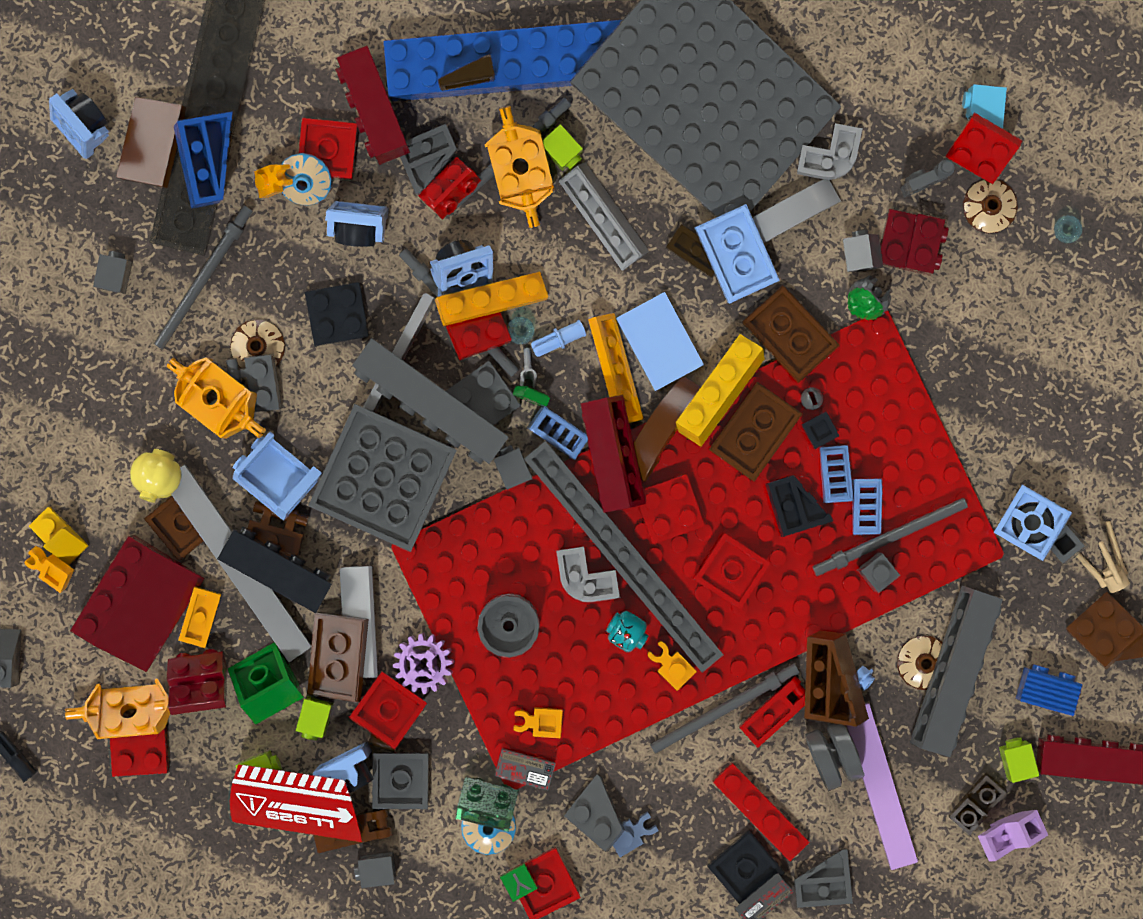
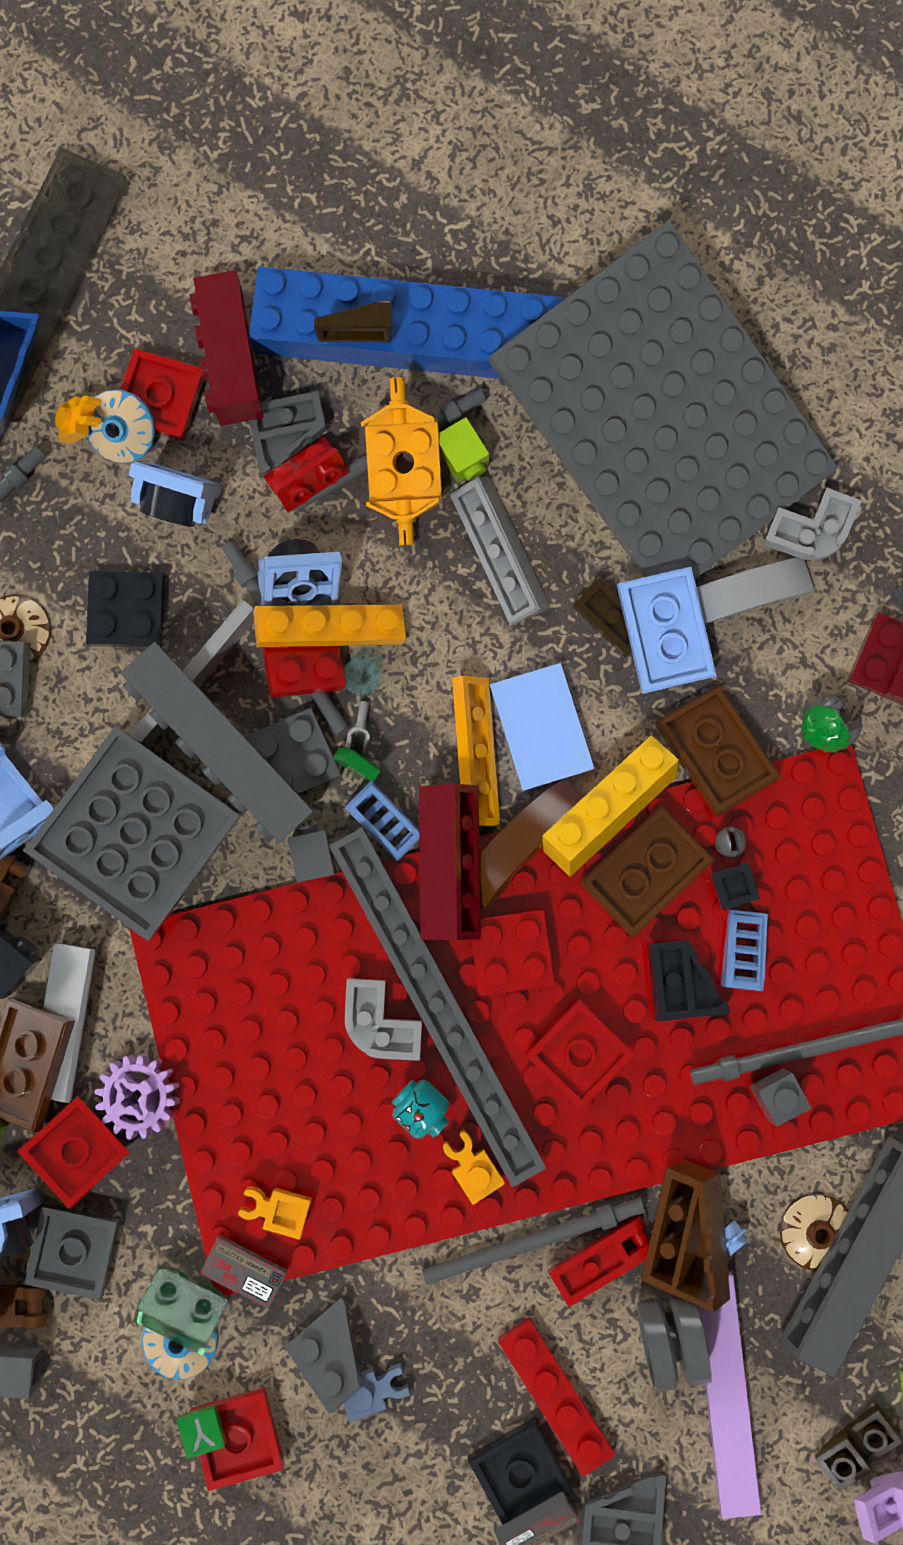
camera: 20 degrees right, 5 degrees down
(508, 608) = (265, 1091): dark grey wheel -> none
(558, 338) = (408, 696): light blue axle -> none
(862, 251) = (833, 660): brick -> none
(877, 506) = (793, 1005): medium blue slope -> none

